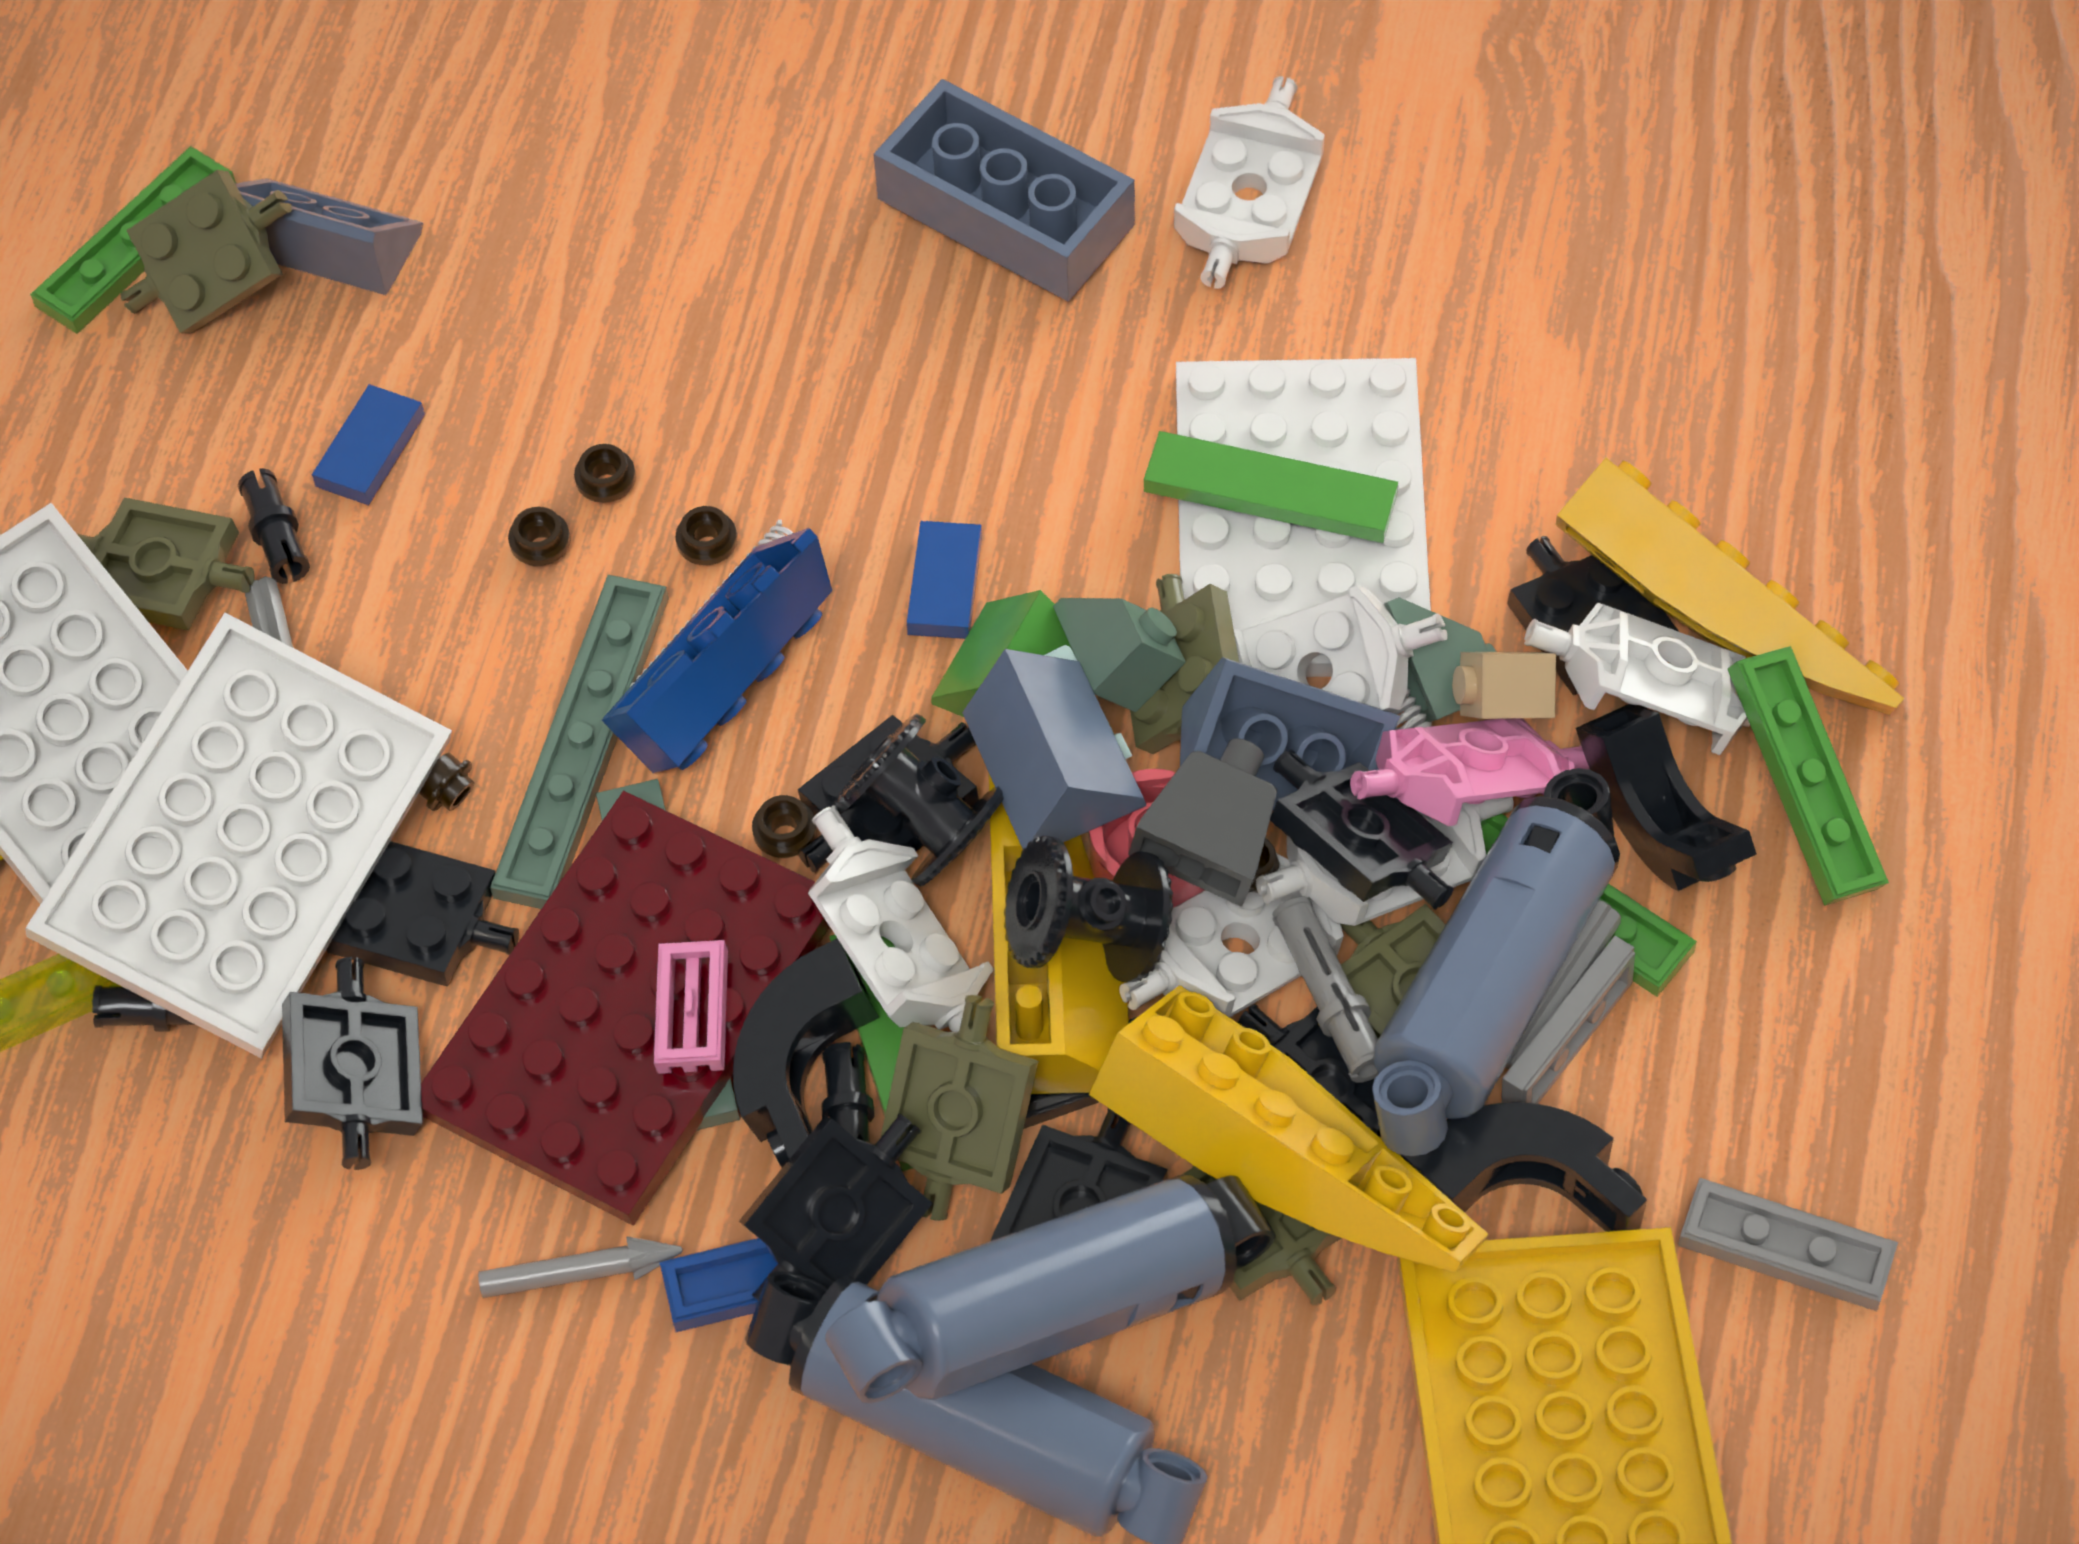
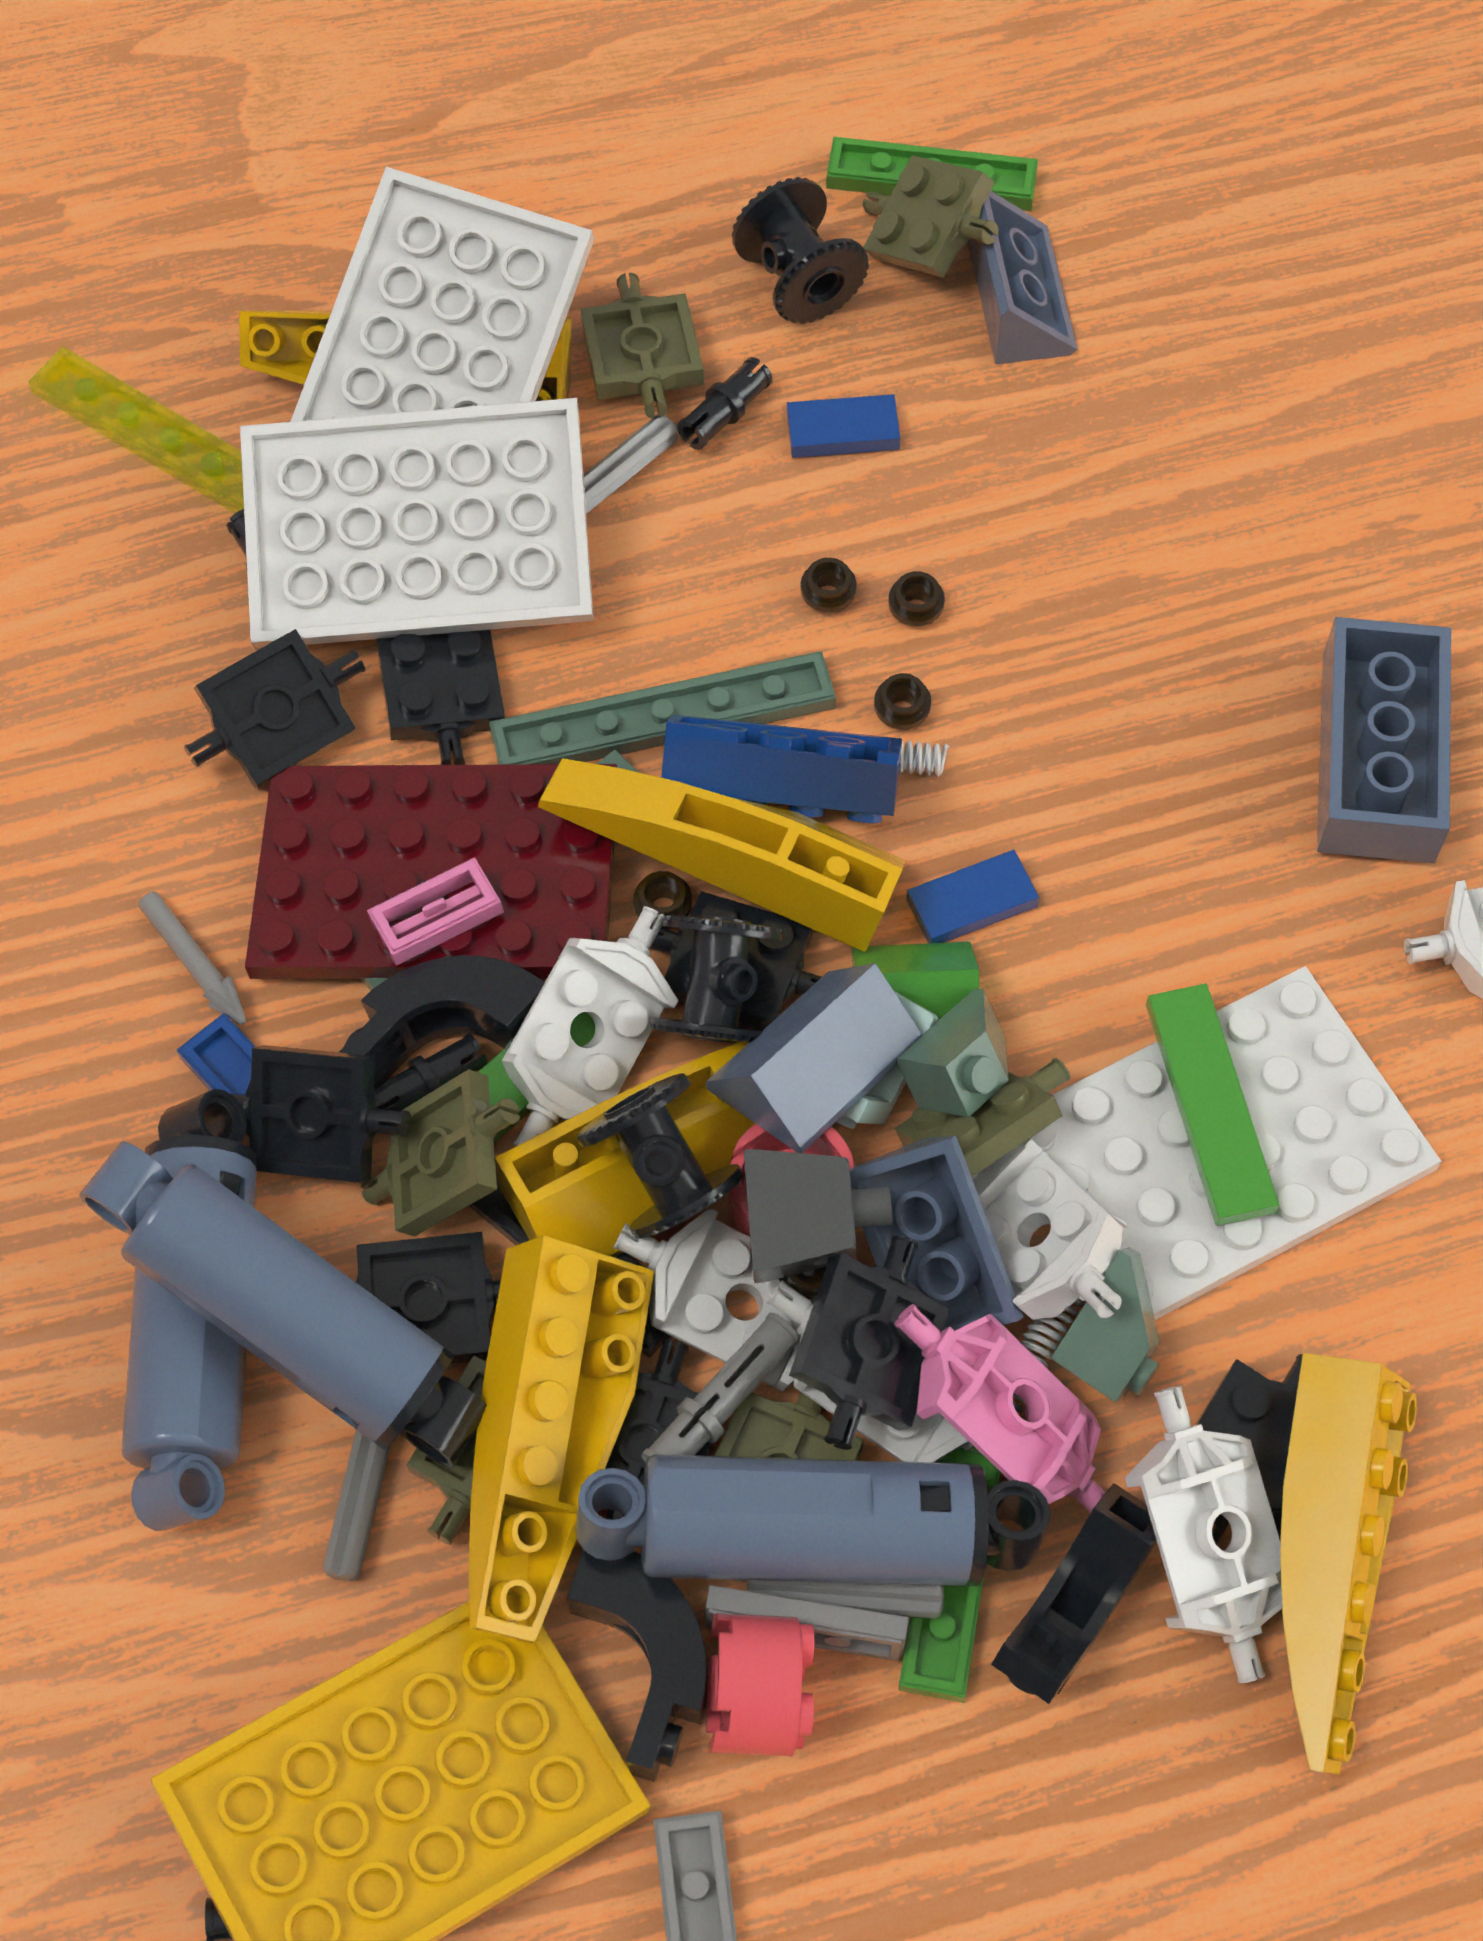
camera: 60 degrees right, 5 degrees up
(159, 375) = (782, 234): none -> black hose
(447, 783) = (564, 642): dark brown plate -> none
(789, 723) = (736, 845): none -> yellow wedge
(1246, 1357) = (355, 1509): none -> light grey axle
(1505, 685) = (1105, 1395): tan brick -> none
(1616, 1077) = (757, 1685): none -> coral brick
(1807, 775) = (1186, 1718): bright green tile -> none

